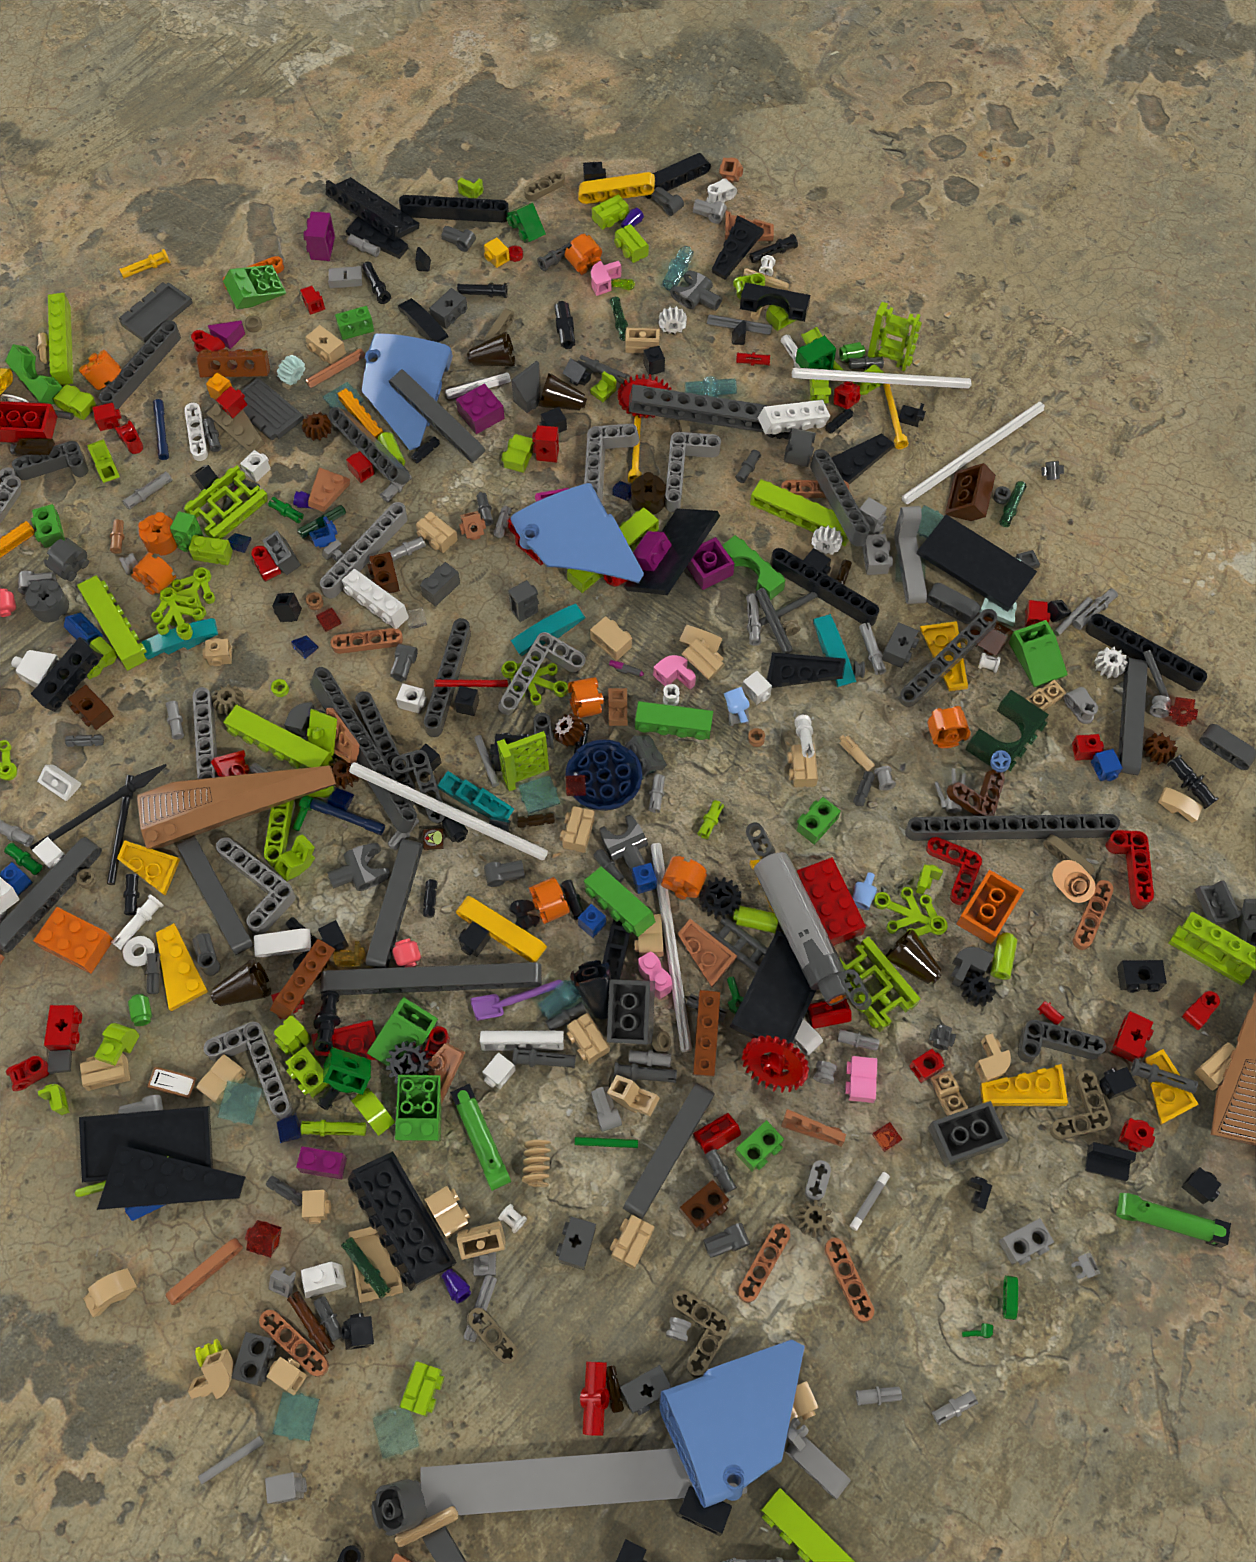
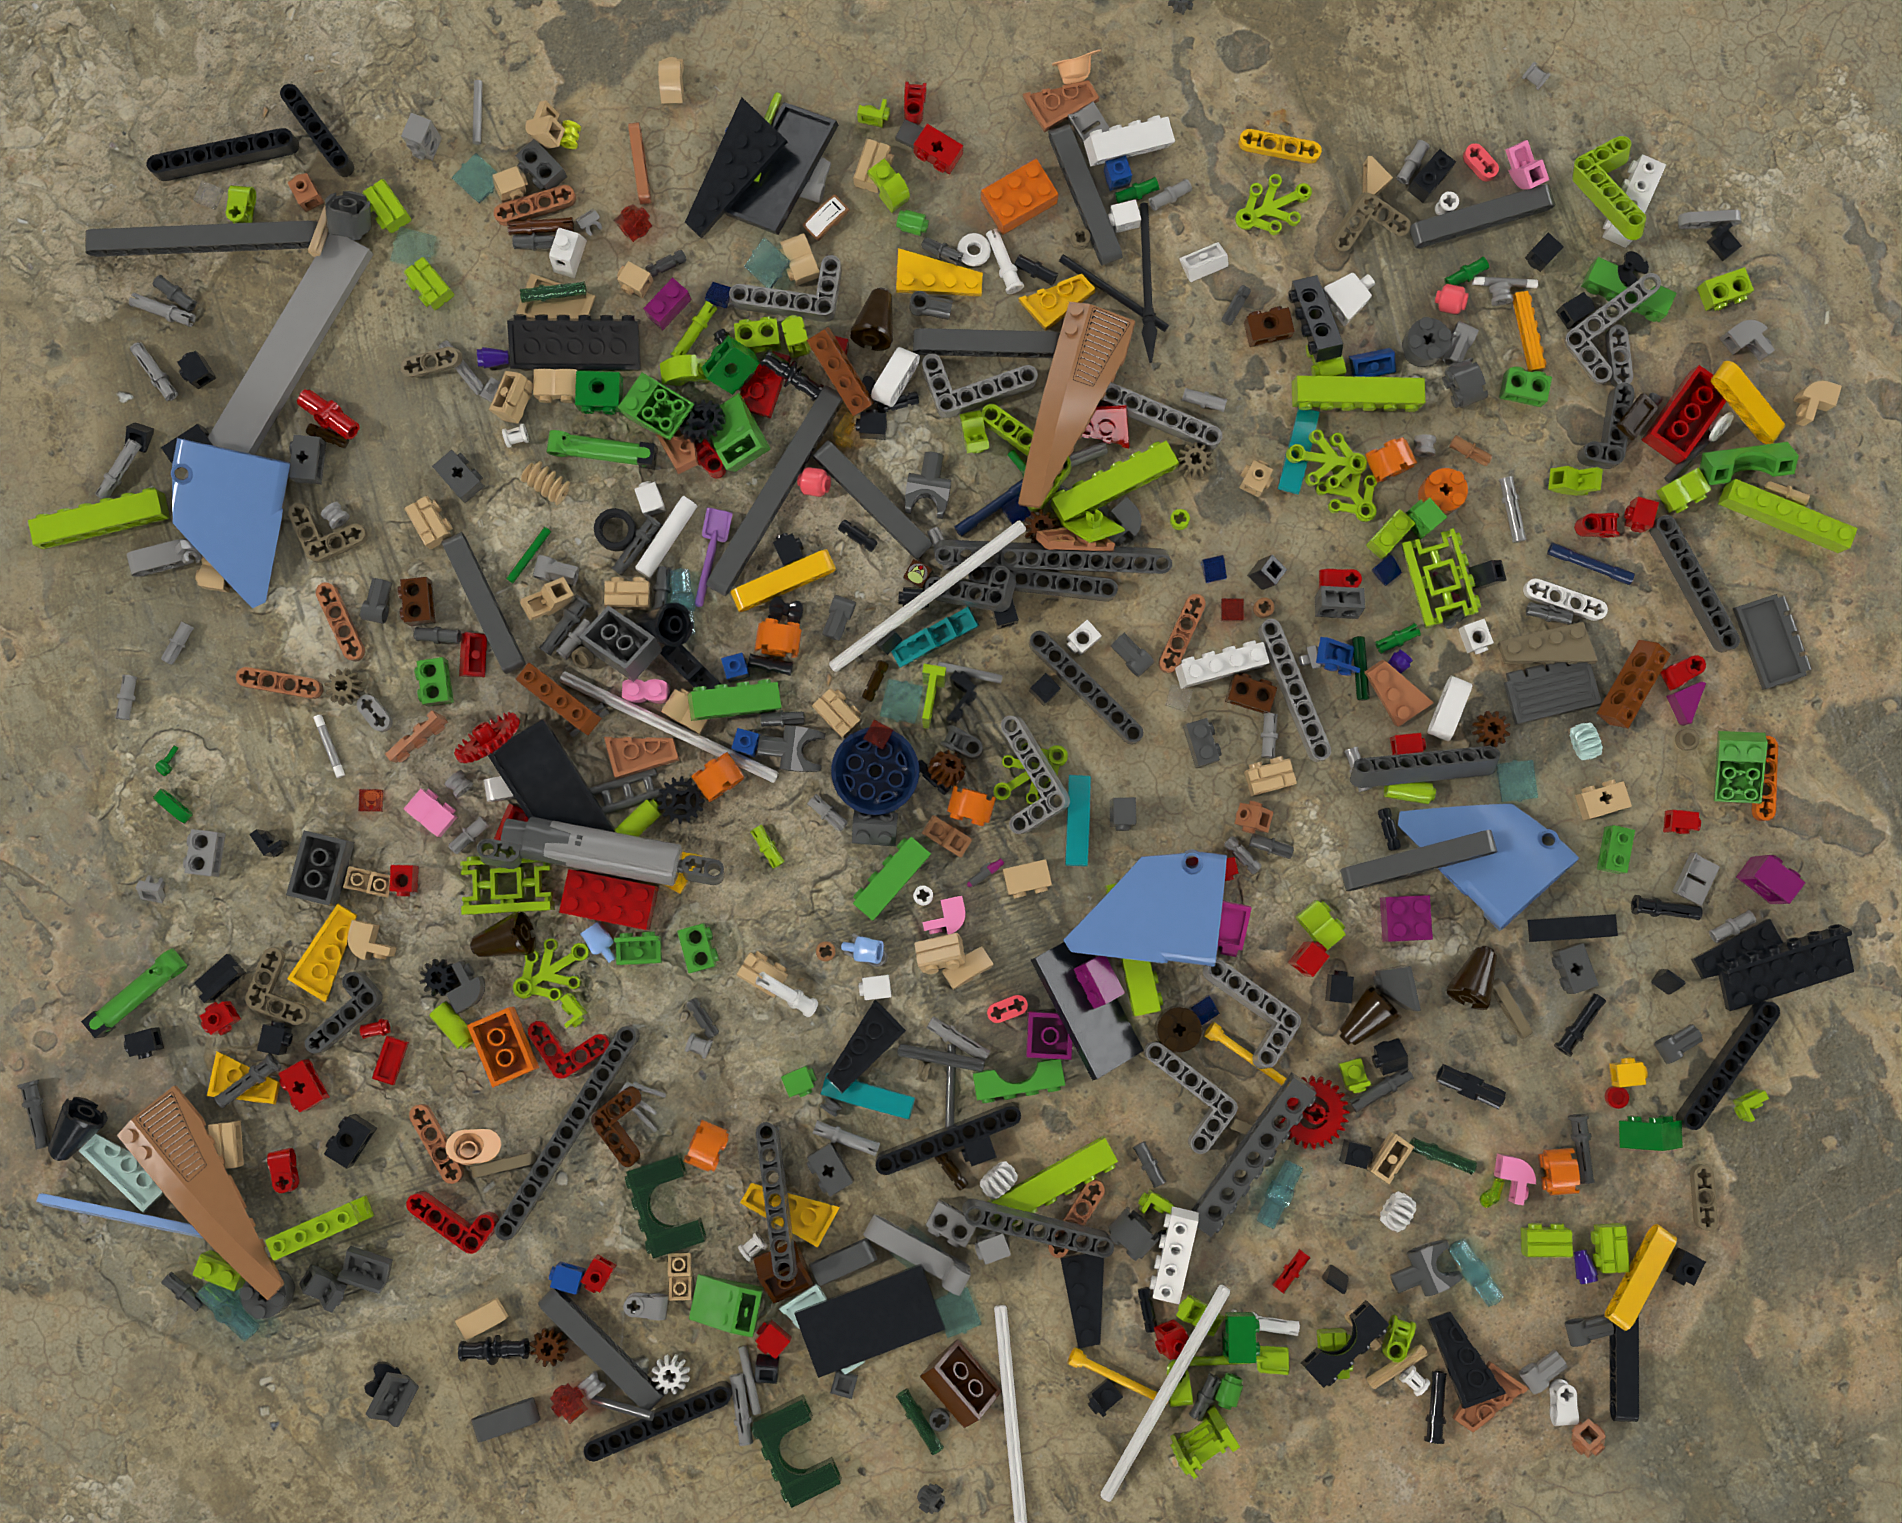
camera: 120 degrees right, 20 degrees up
(100, 369) = (1707, 534): orange brick -> none
(152, 261) = (1851, 674): yellow pin -> none
(217, 385) = (1609, 652): light orange brick -> none
(232, 401) = (1573, 651): red brick -> none
(317, 456) = (1449, 708): none -> white beam
(335, 368) = (1565, 795): nougat axle -> none
(357, 1332) = (505, 257): black brick -> none
(358, 411) = (1477, 784): light orange piece -> none
(370, 1476) = (387, 206): none -> lime brick
(433, 1156) = (607, 401): none -> green brick
(470, 683) = (1060, 703): red bar -> none
(490, 382) = (1443, 937): white axle -> none
(536, 1068) = (601, 520): none -> black tyre
(710, 602) = (1009, 1013): none -> coral beam
(733, 323) = (1353, 1288): dark grey axle -> none
(735, 994) = (583, 754): green bar -> none
(770, 453) = (1159, 1203): none -> lime bracket
(850, 860) = (638, 950): none -> bright green bracket
(854, 750) = (742, 1038): tan piece -> none
(858, 698) = (799, 1081): none -> bright green brick
(942, 1037) = (418, 911): dark grey gear -> none
(1000, 757) = (629, 1163): medium blue wheel -> none
(1063, 988) = (390, 1060): none -> red tile
(1087, 581) = (796, 1483): none -> clear green arch

